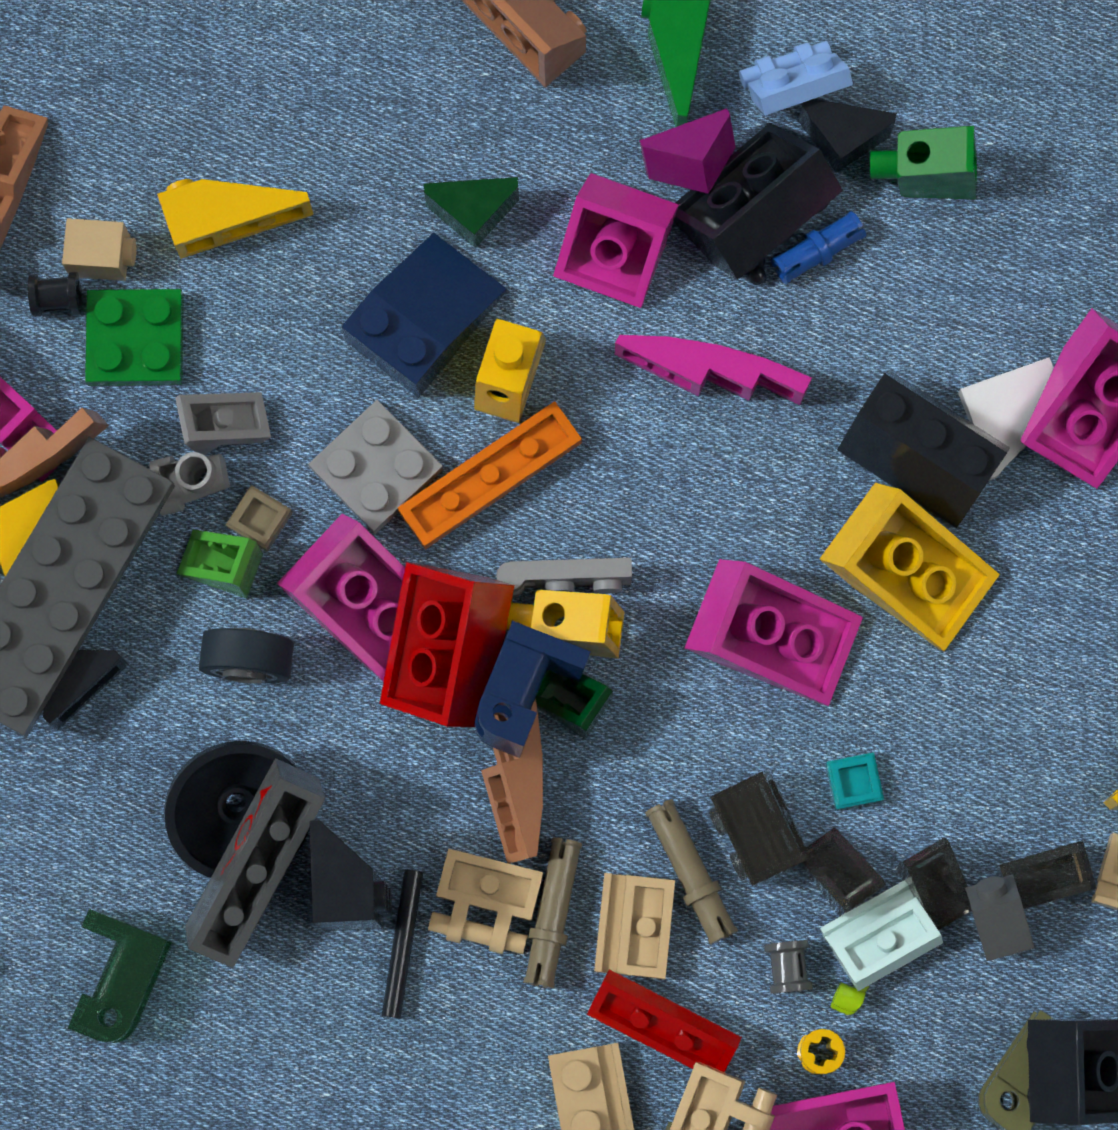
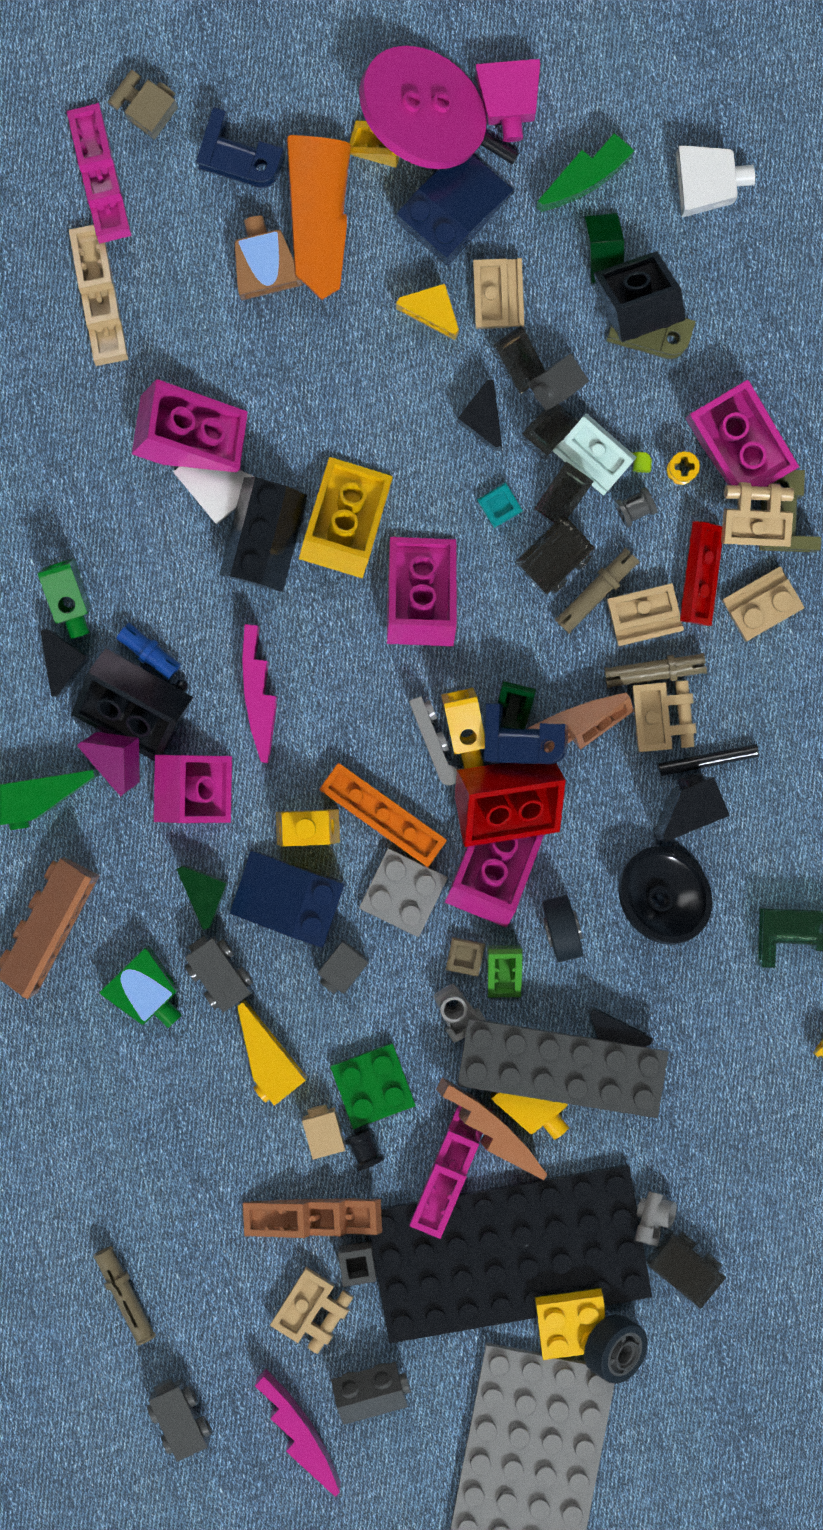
camera: 110 degrees left, 10 degrees up
(222, 420) = (410, 1003): light grey slope -> none
(254, 863) = (696, 871): dark grey brick -> none
(305, 349) = (342, 968): none -> dark grey brick
(360, 185) = (213, 965): none -> dark grey brick
(374, 86) = (144, 990): none -> torso
(795, 77) = (37, 696): light blue plate -> none
(986, 799) = (482, 417): none -> black slope

